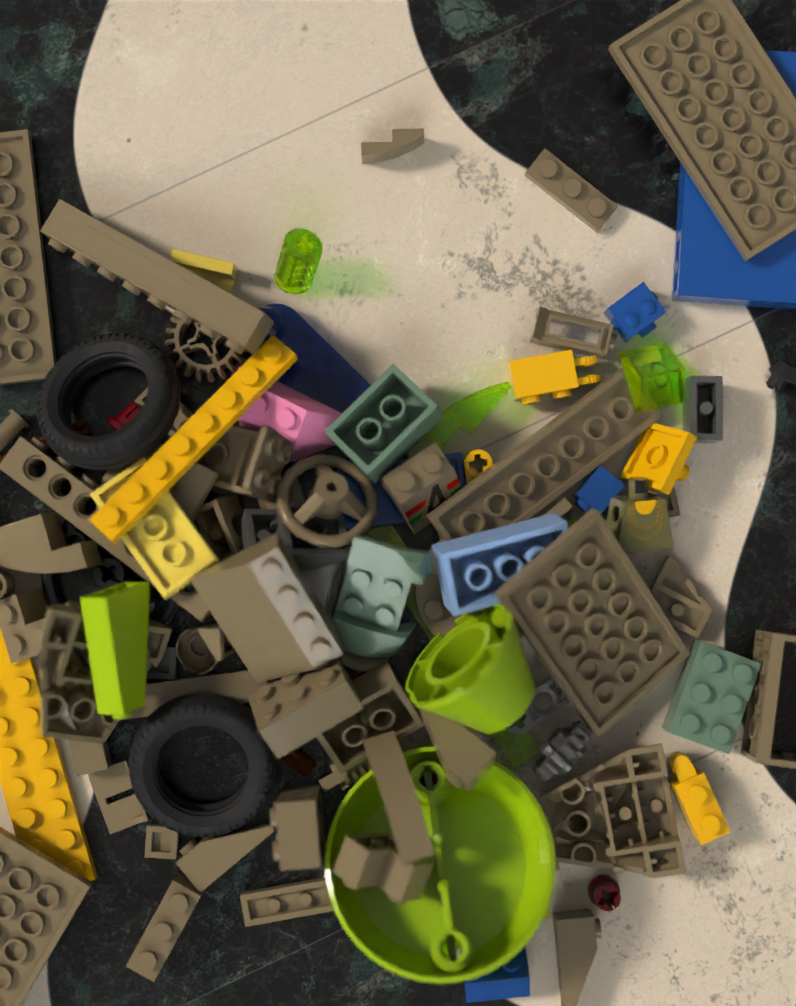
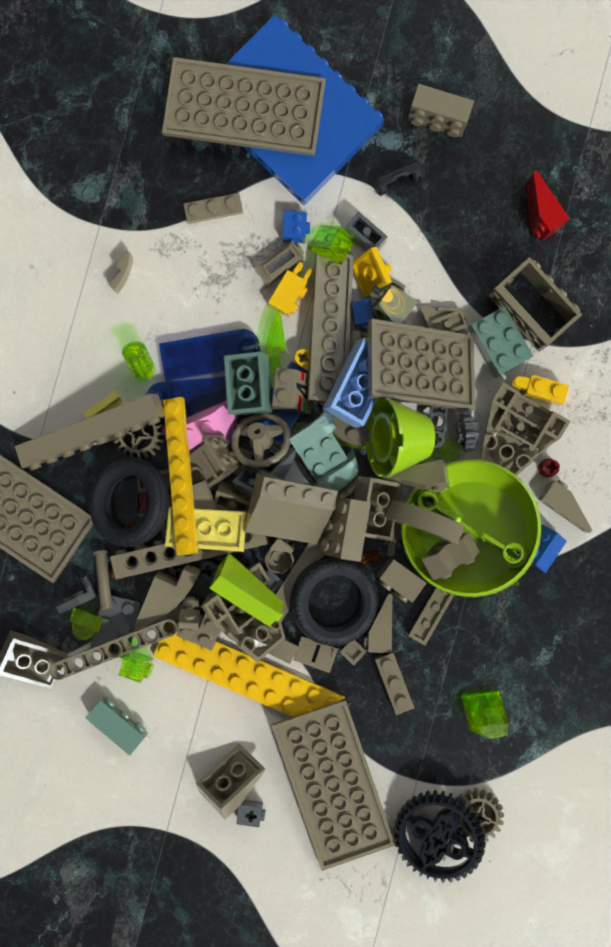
camera: 45 degrees left, 0 degrees up
(29, 601) = (190, 613): none -> dark tan plate
(379, 335) = (204, 353): none -> clear blue plate

